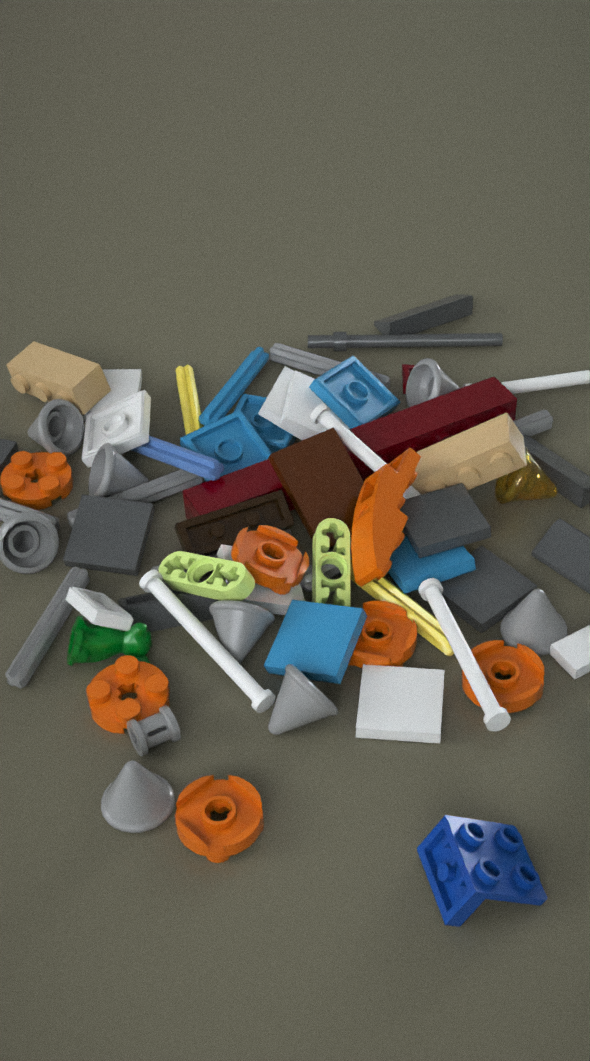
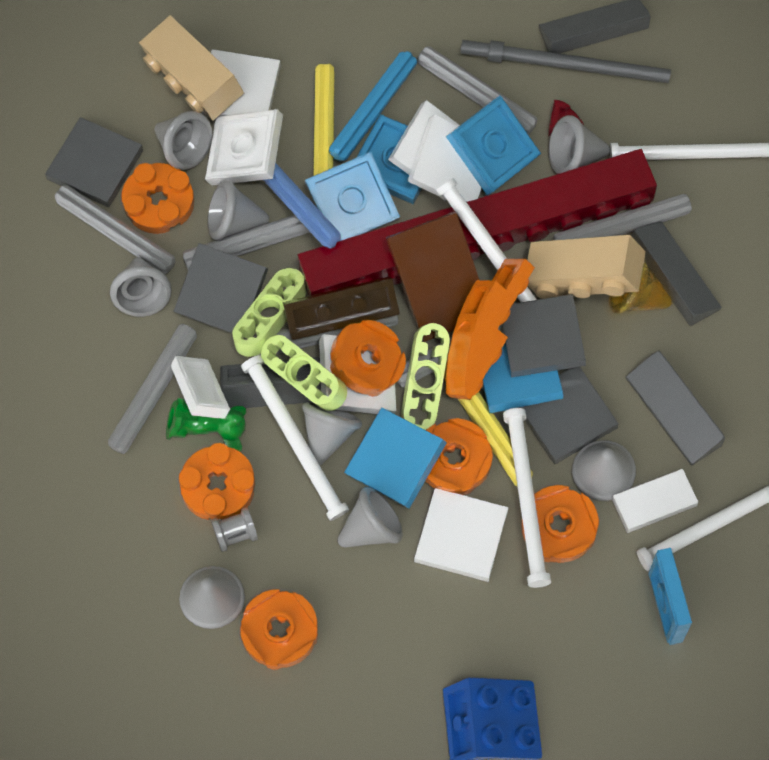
camera: 10 degrees right, 25 degrees up
(156, 544) = (267, 326): none -> yellowish green beam

